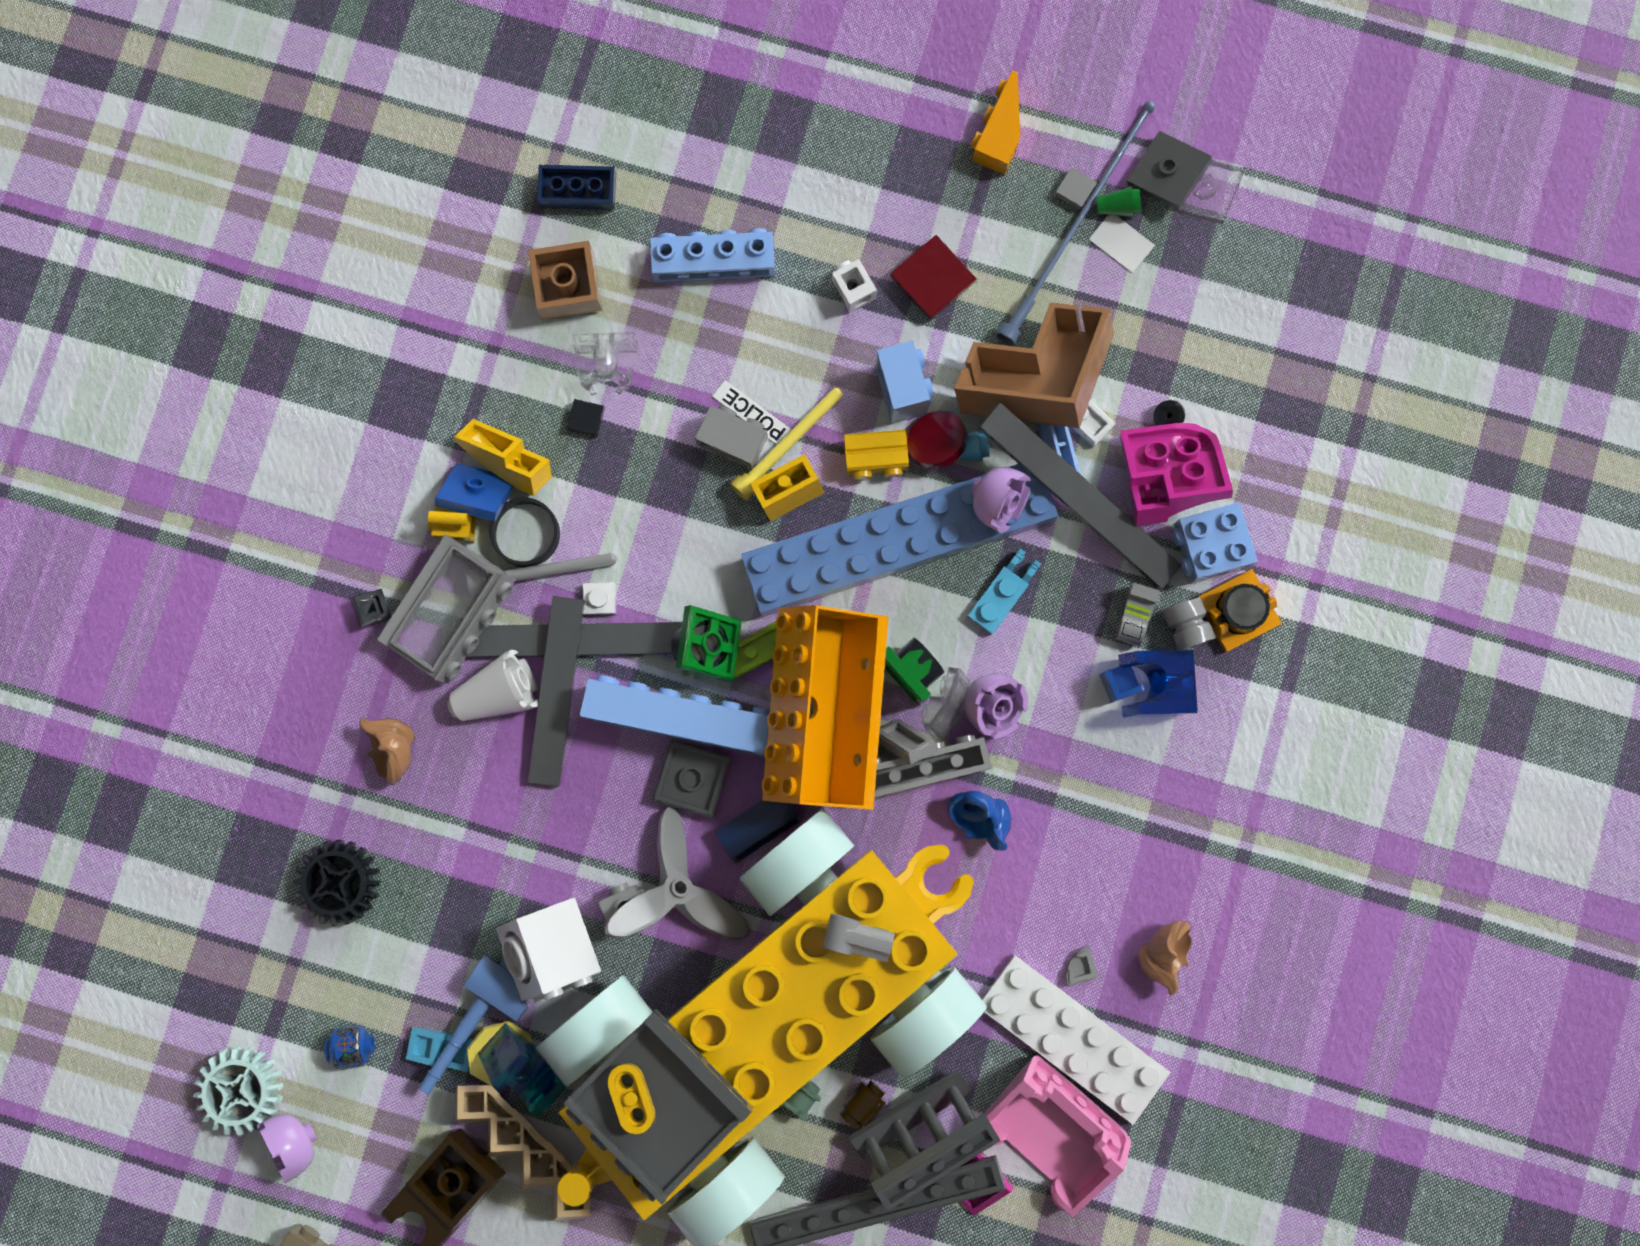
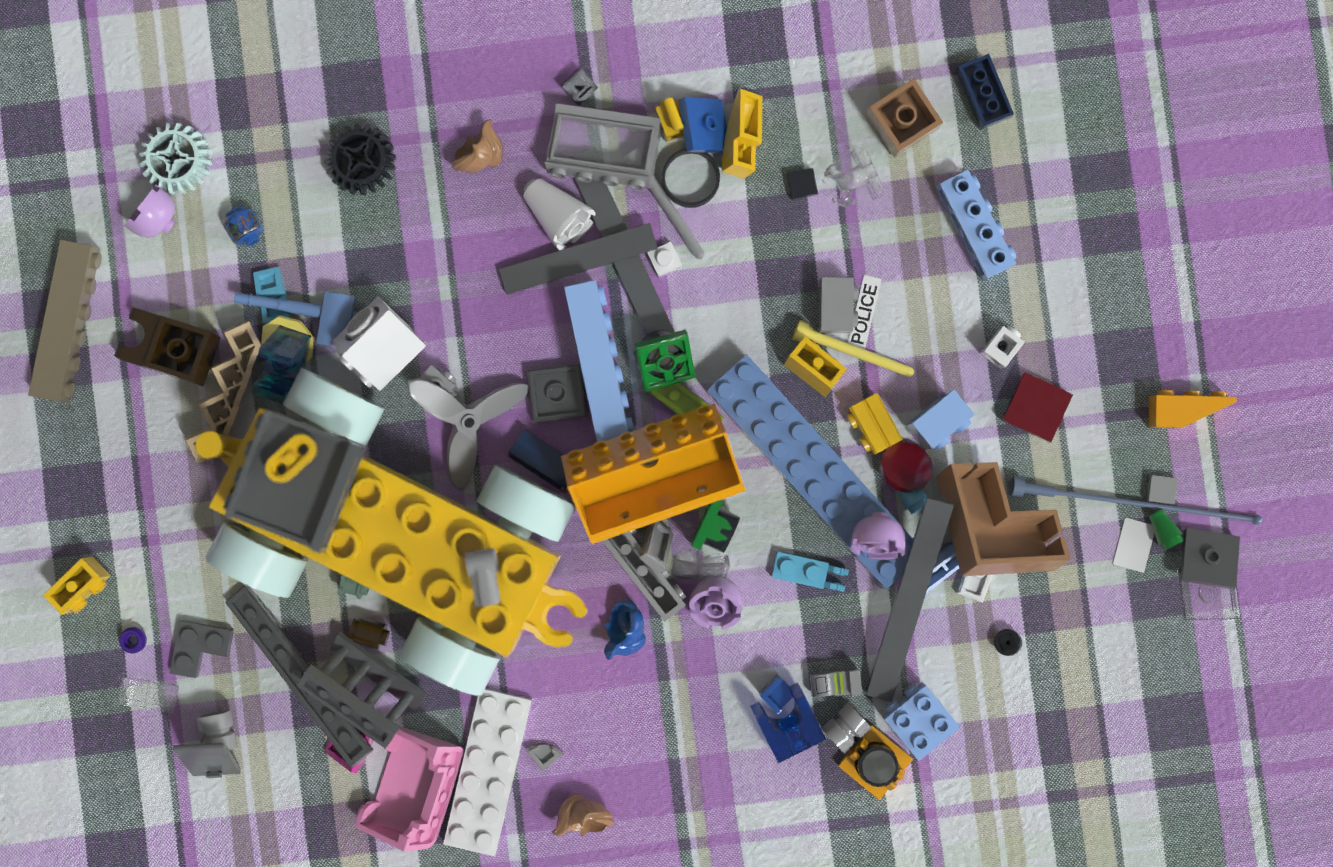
camera: 70 degrees right, 5 degrees up
(1172, 470) = (962, 664): dark pink slope -> none

